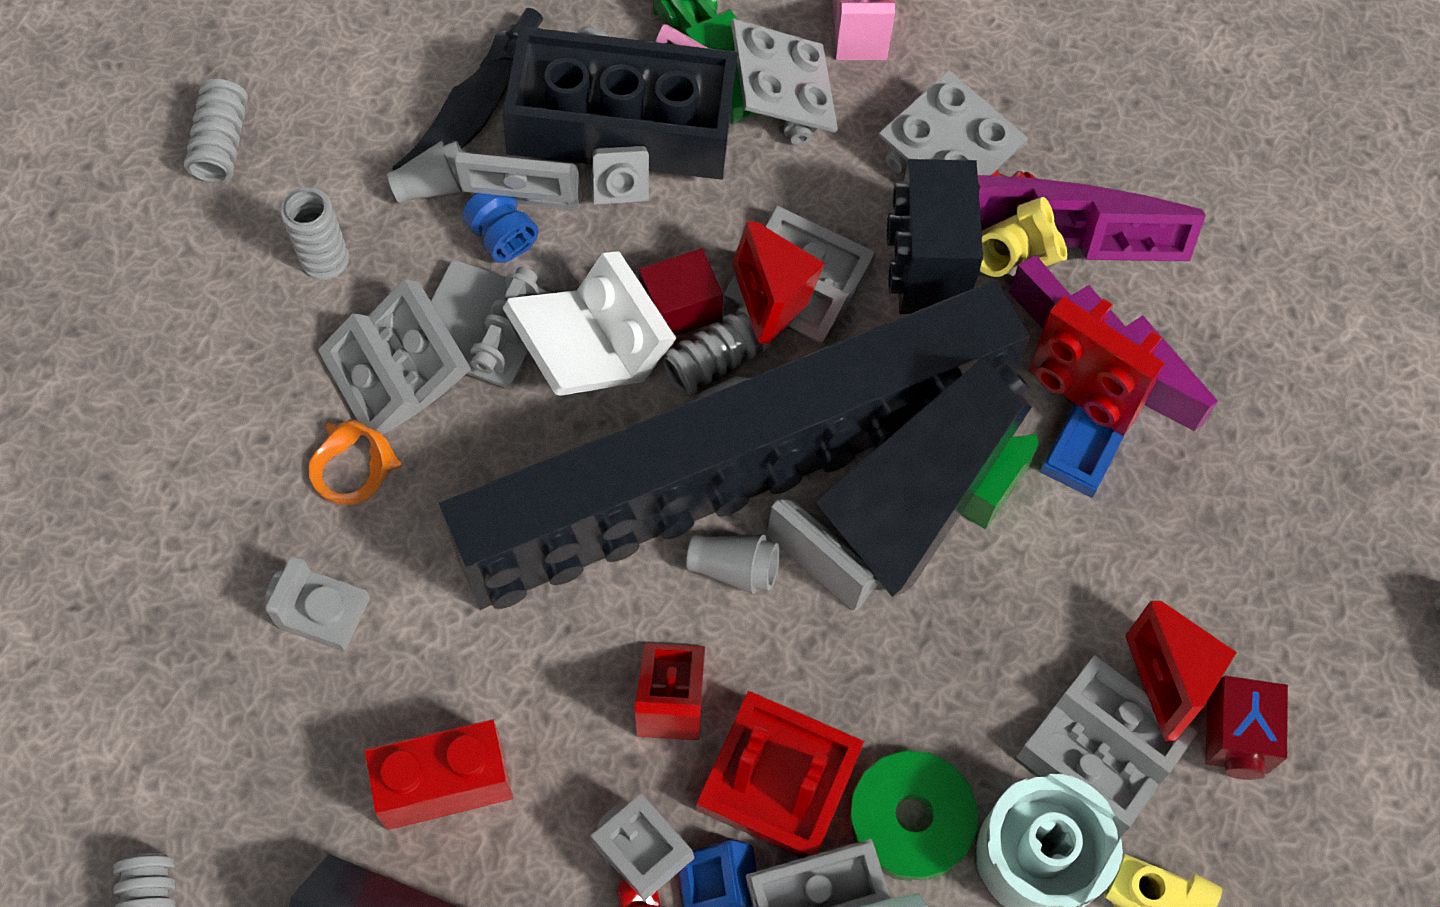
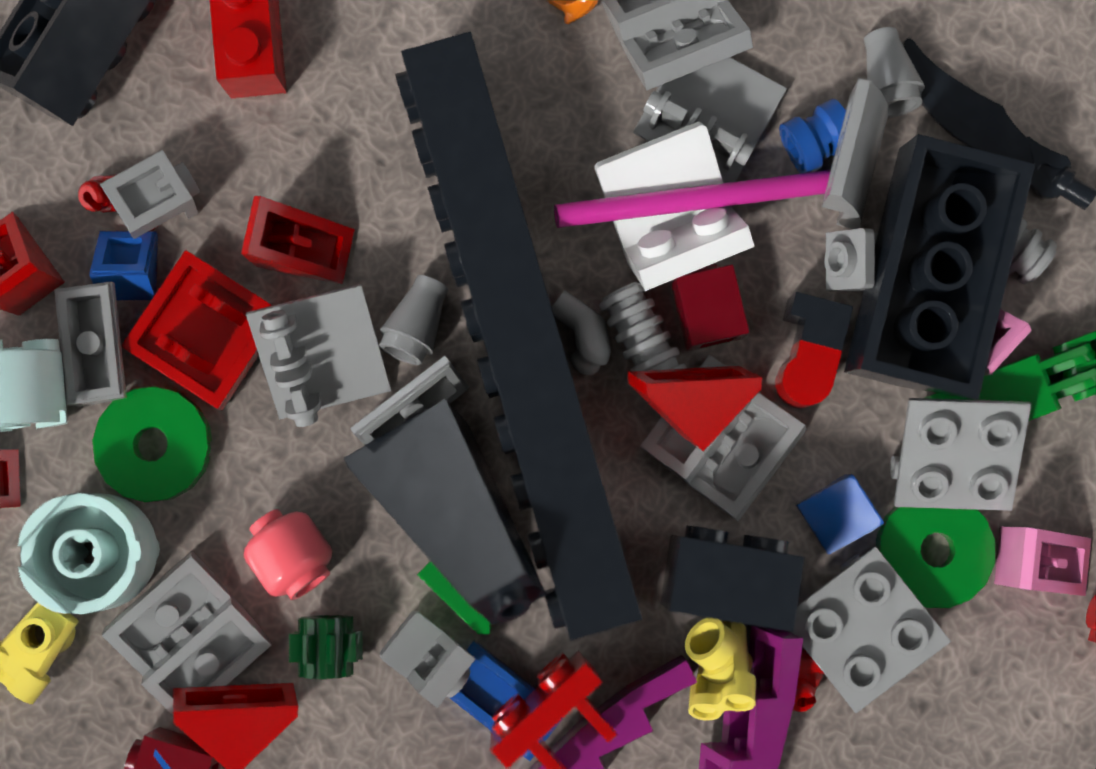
camera: 100 degrees right, 20 degrees up
(578, 315) = (690, 199): none -> dark pink piece
(704, 207) = (815, 349): none -> leg
(788, 646) = (319, 352): none -> light grey hinge
(850, 173) = (840, 513): none -> blue slope
(868, 76) = (969, 558): none -> green tile
(1000, 644) = (287, 554): none -> coral head
(1072, 492) = (428, 658): none -> light grey bracket
(1084, 594) = (325, 646): none -> dark green gear

